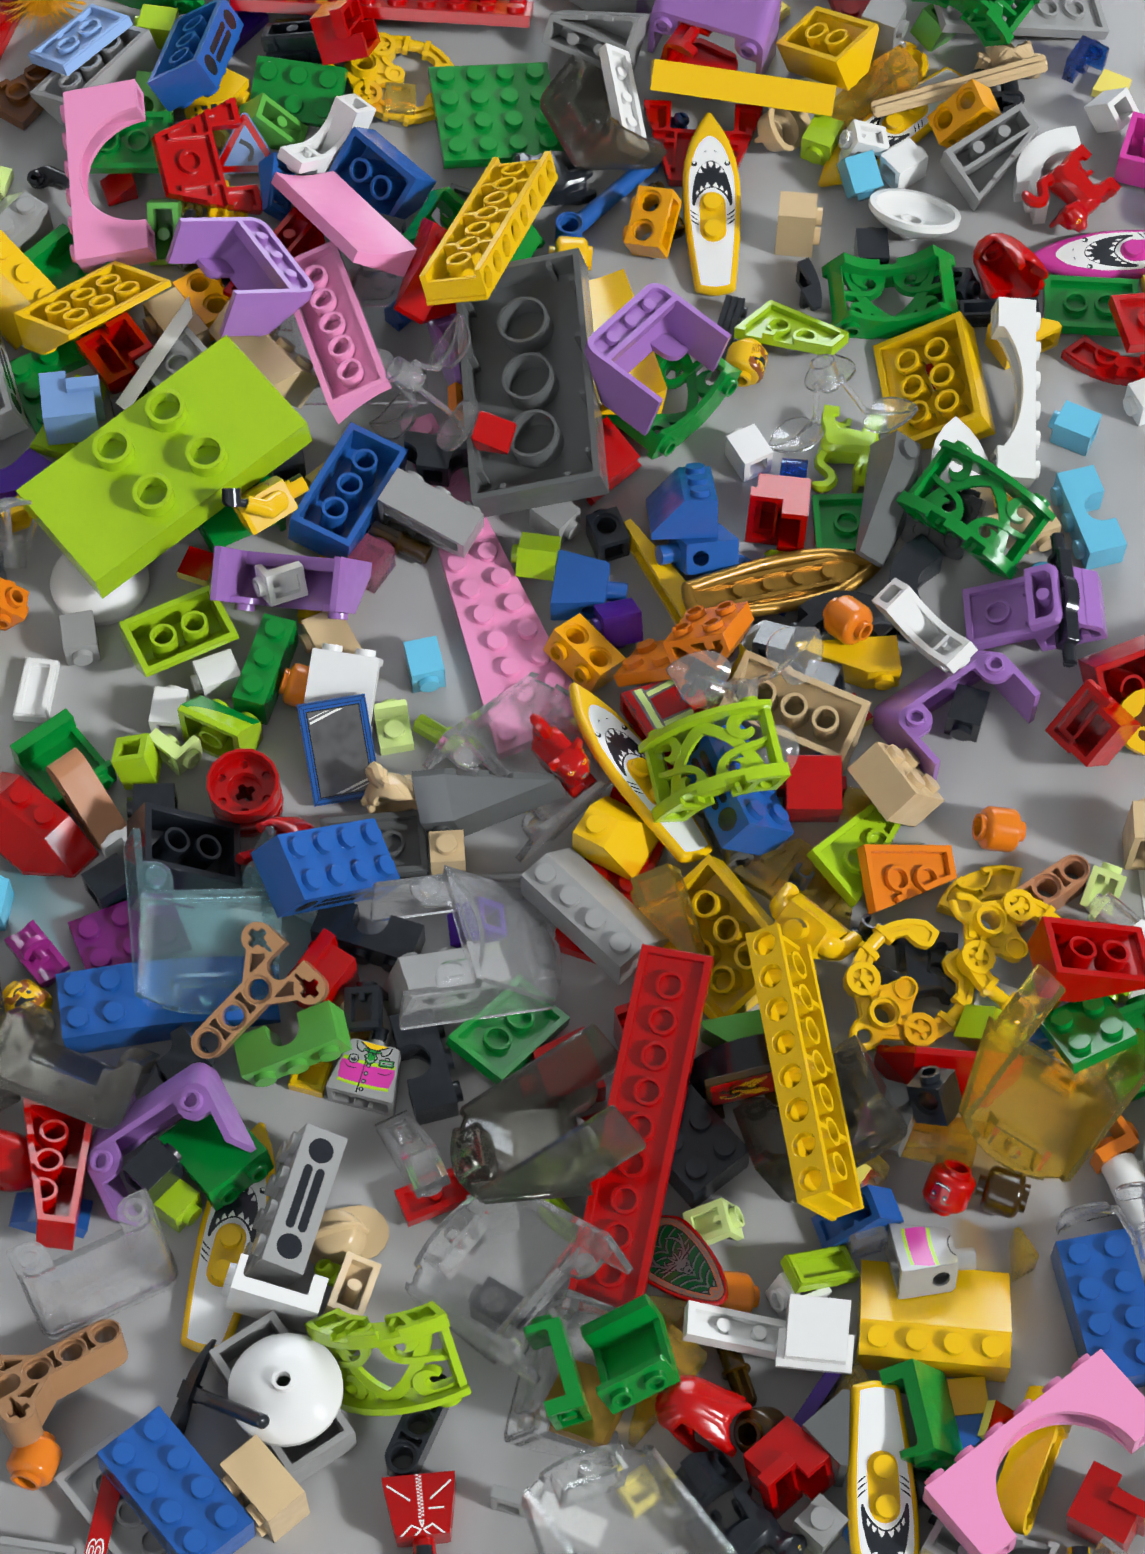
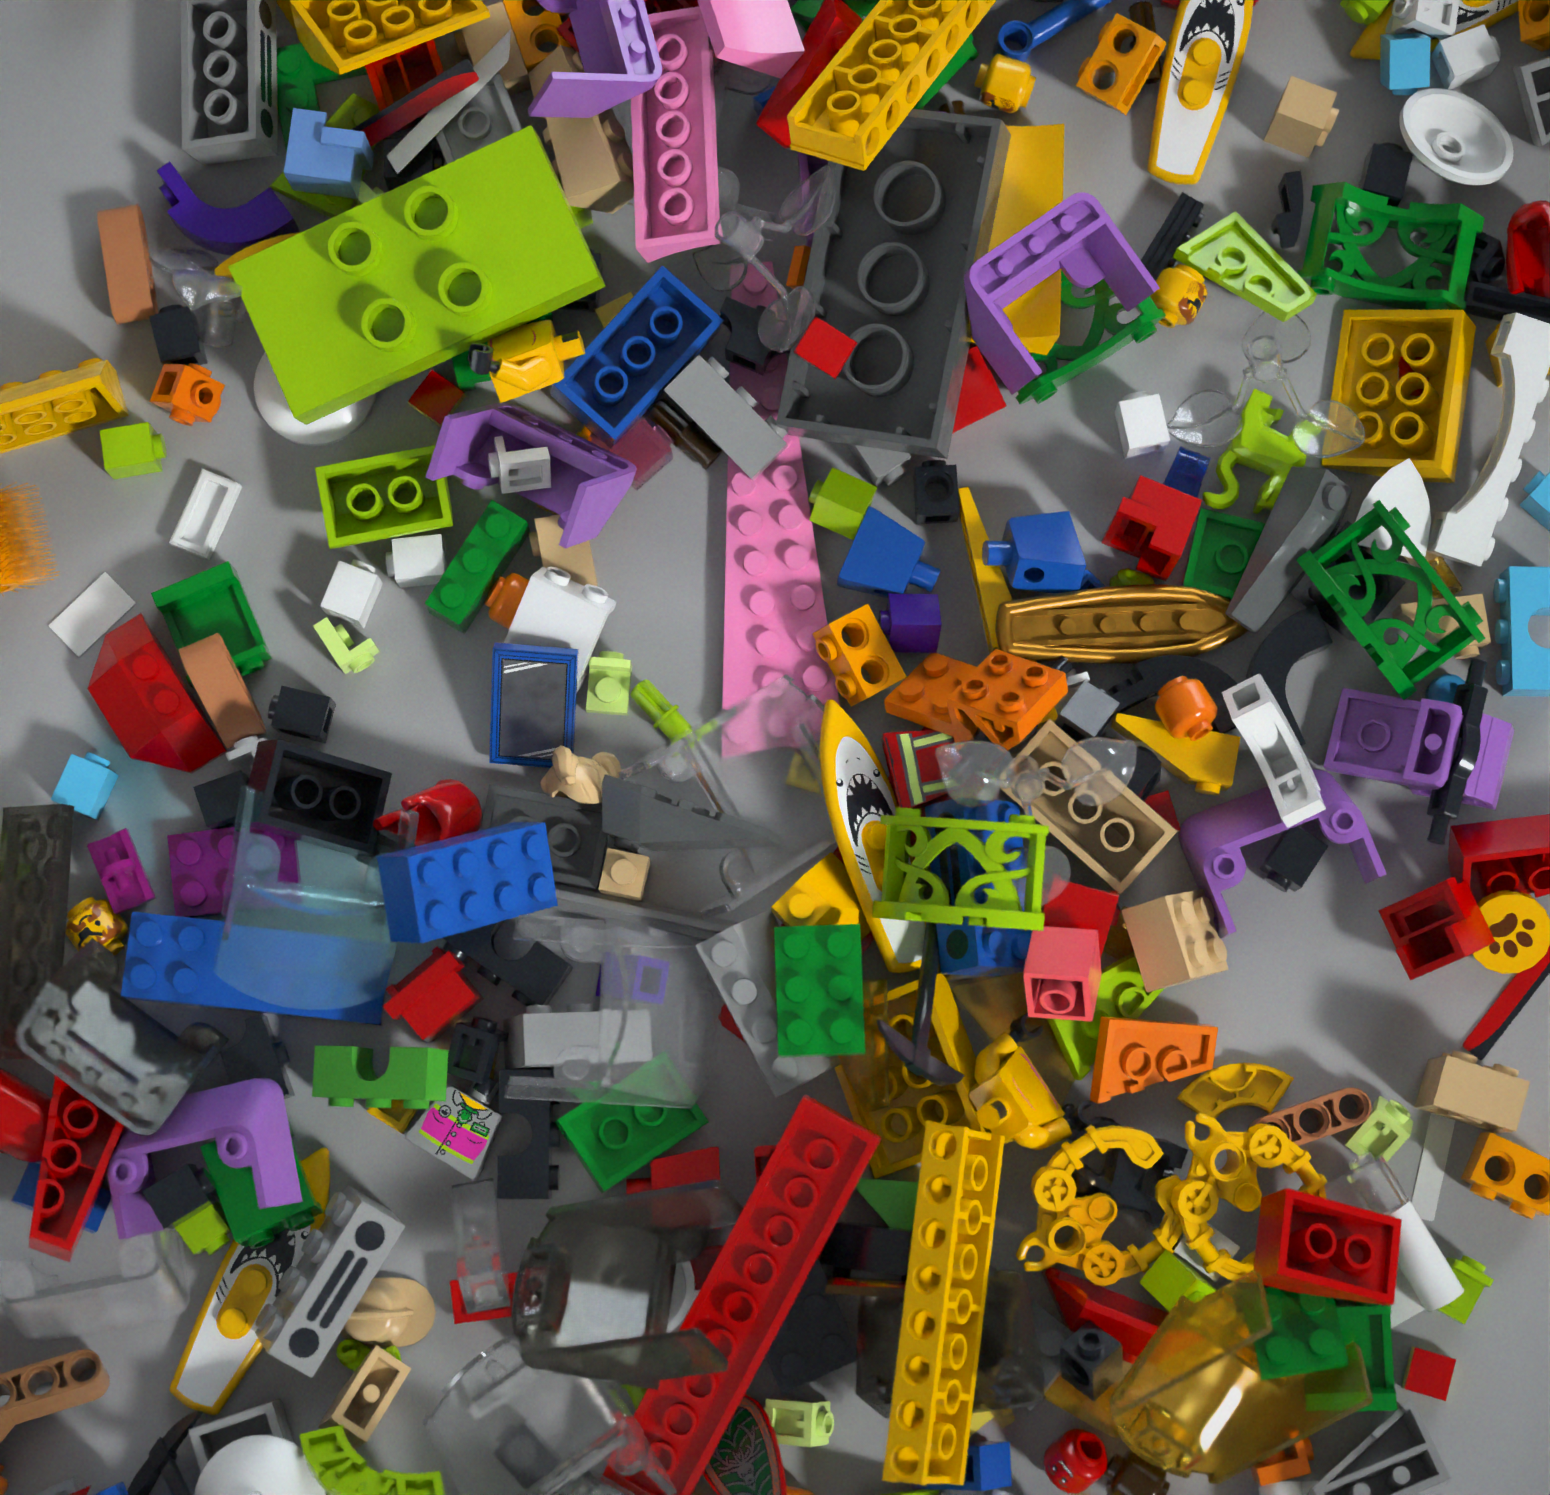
camera: 15 degrees right, 20 degrees up
(80, 638) = (270, 463): light grey brick -> none
(135, 356) = (418, 102): none -> red sticker
(136, 760) = (294, 653): lime brick -> none
(219, 726) = (404, 634): lime slope -> none
(241, 776) = (387, 722): red wheel -> none
(256, 967) = (378, 1023): medium nougat beam -> none
(259, 1298) = (275, 1391): white panel -> none
(424, 664) = (667, 613): medium azure brick -> none
(561, 756) = (791, 813): red animal -> none
(630, 877) = (819, 990): none -> green plate
(684, 505) = (1035, 491): blue slope -> none
(718, 889) = (915, 1053): none -> black piece
(816, 818) = (1062, 973): none -> coral head
(998, 829) = (1281, 1022): orange head -> none

